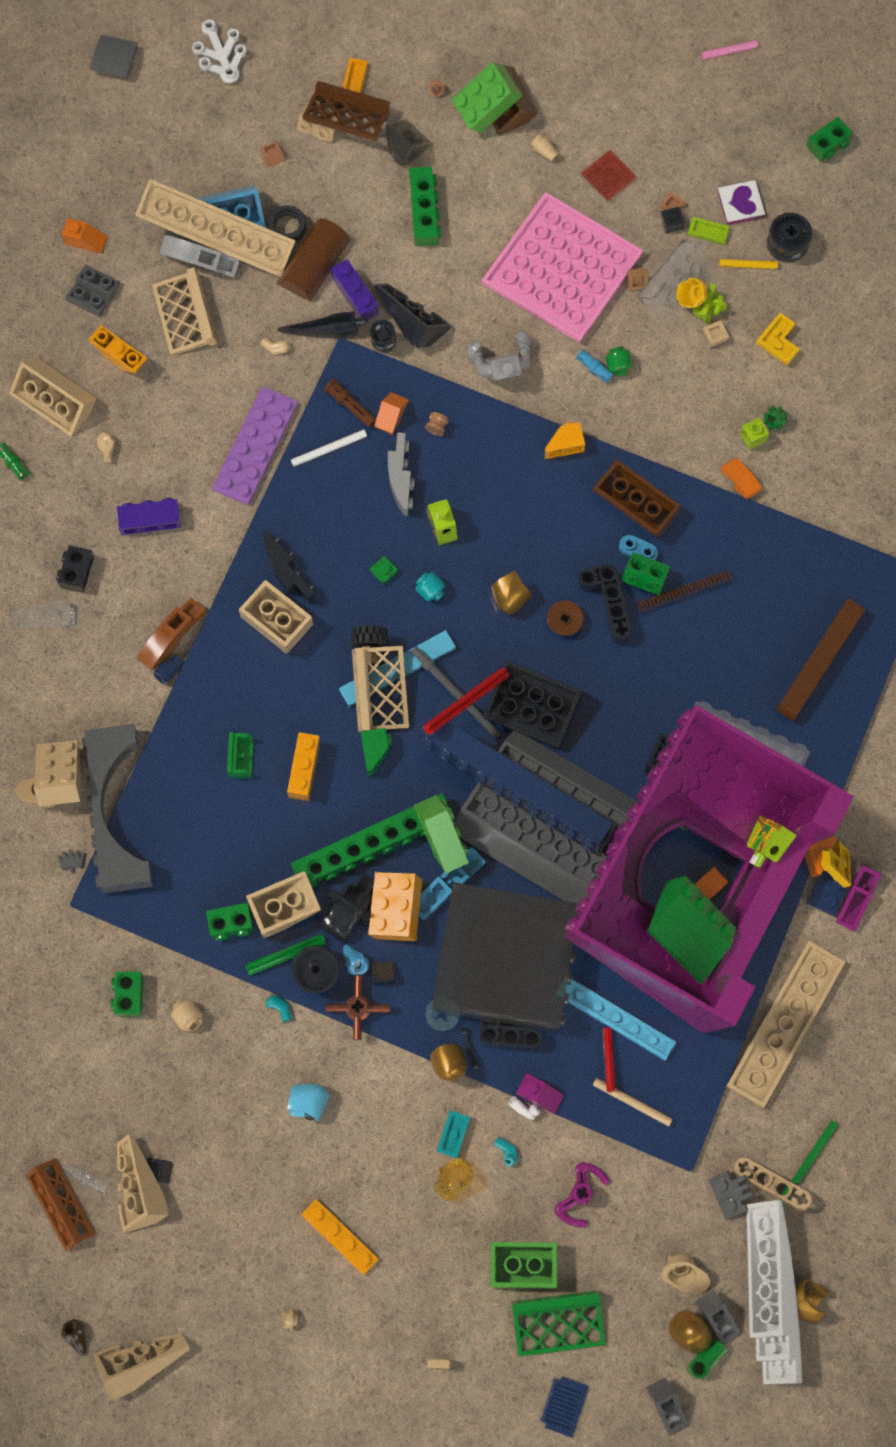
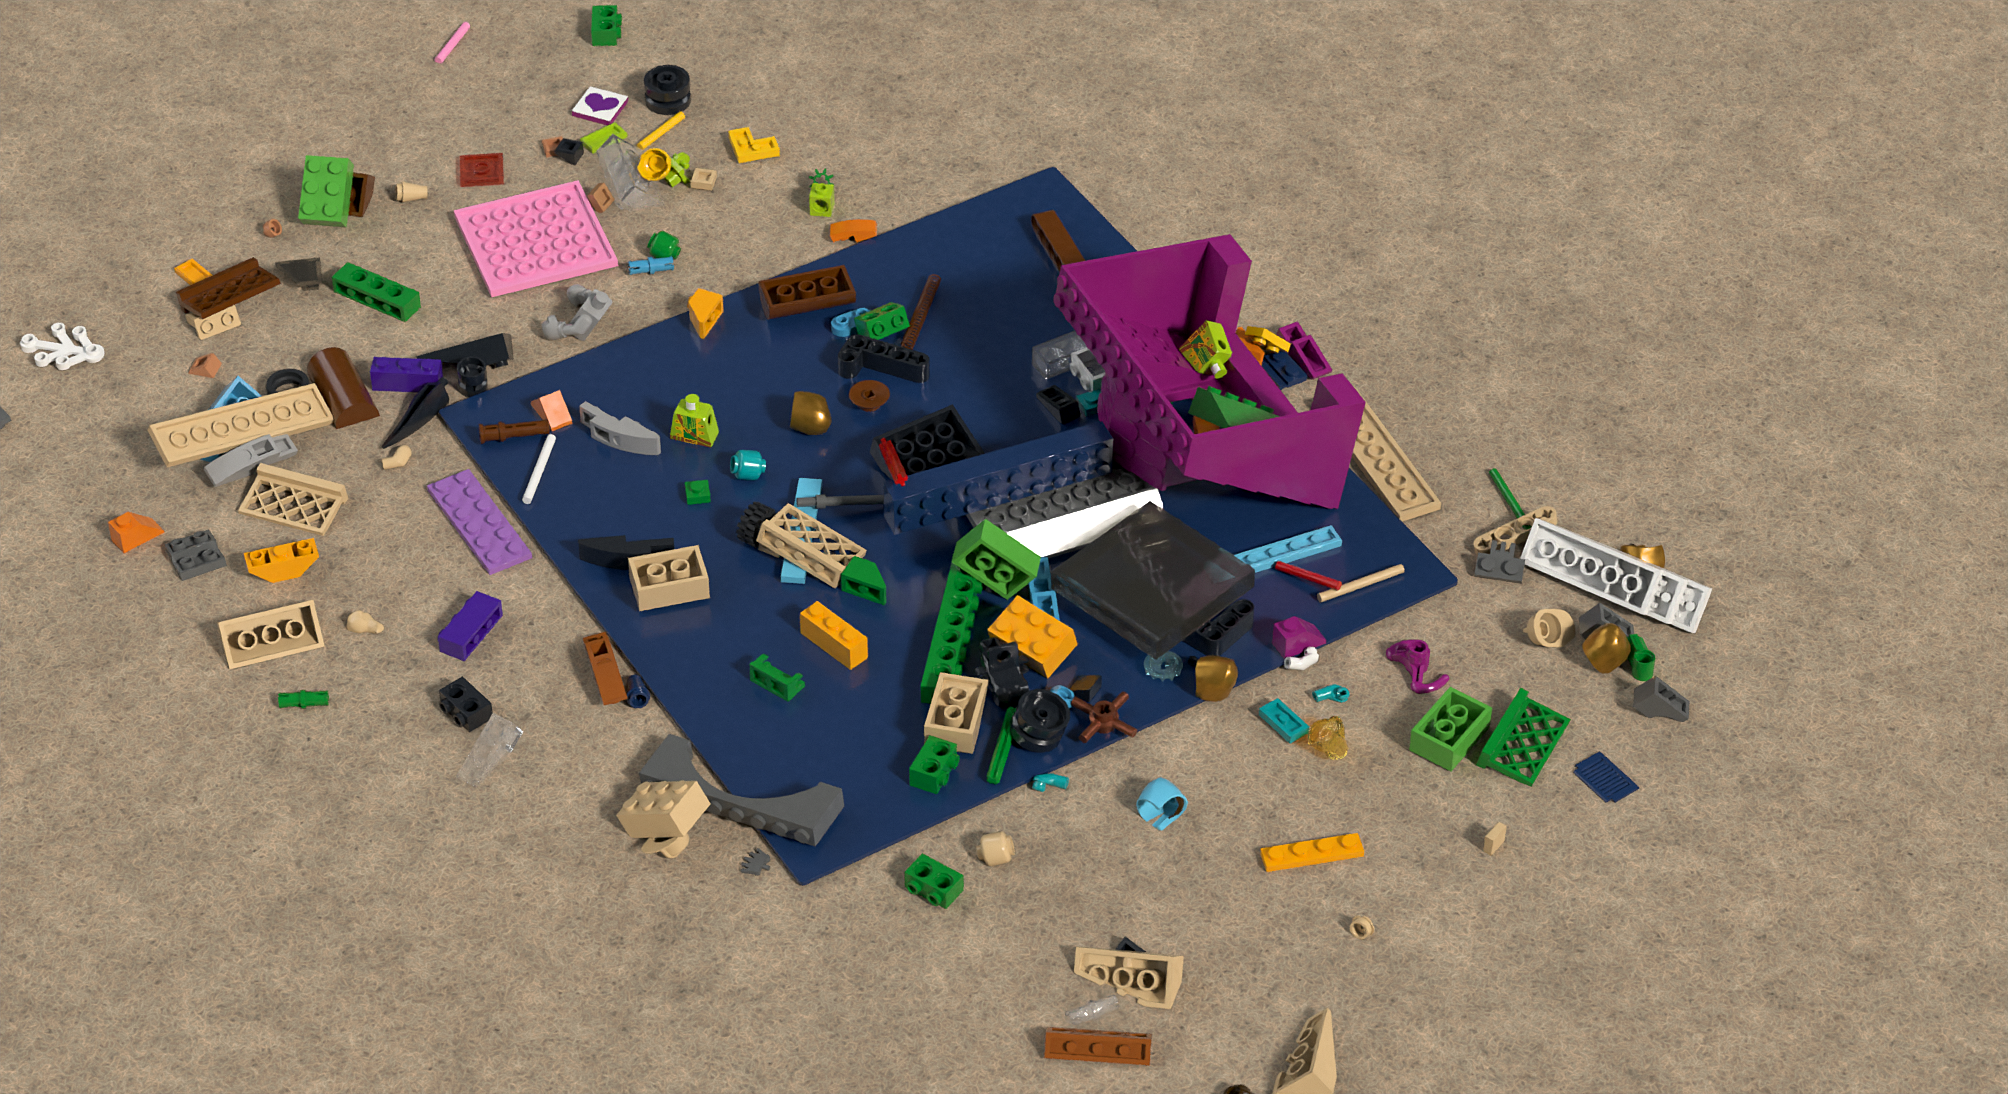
camera: 55 degrees left, 30 degrees down
(436, 424) = (596, 383): medium nougat wheel -> none

